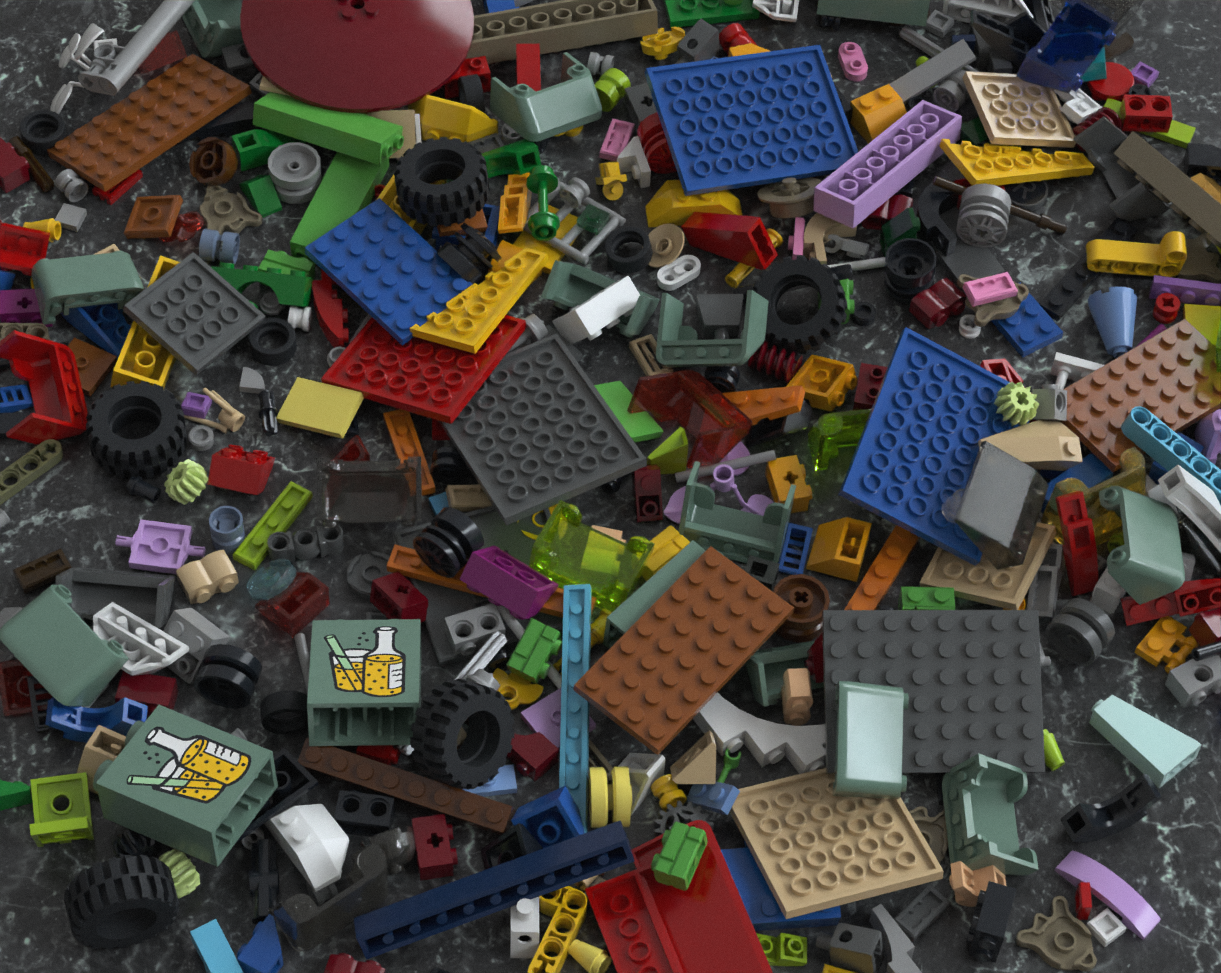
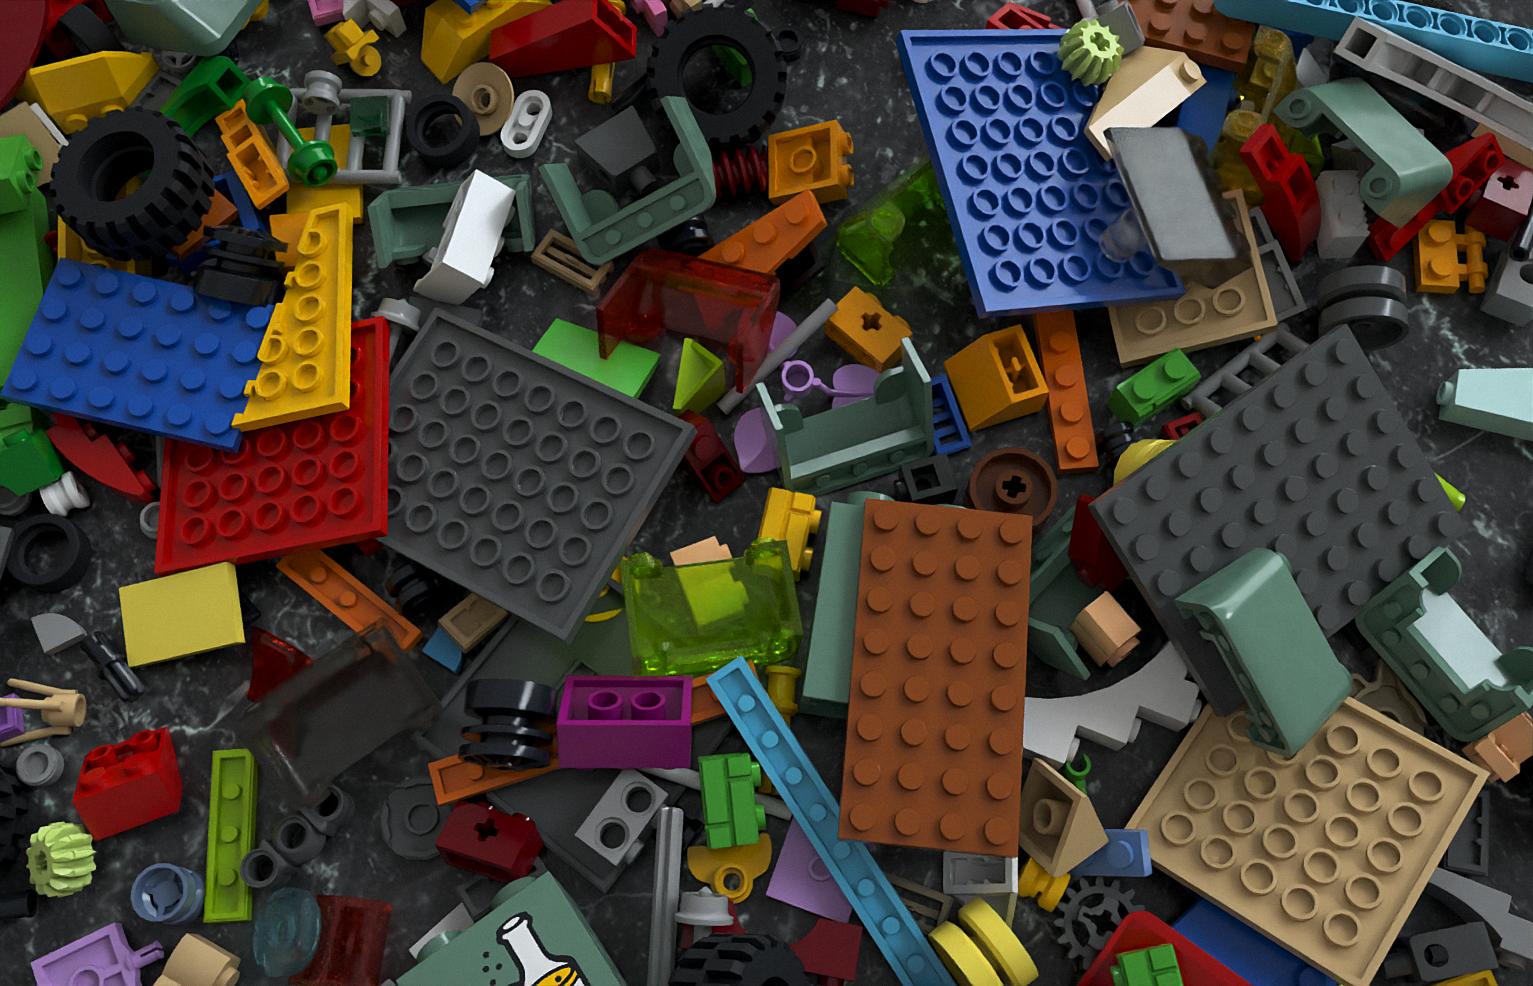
camera: 30 degrees left, 15 degrees up
(868, 385) = (877, 141): dark red brick -> none

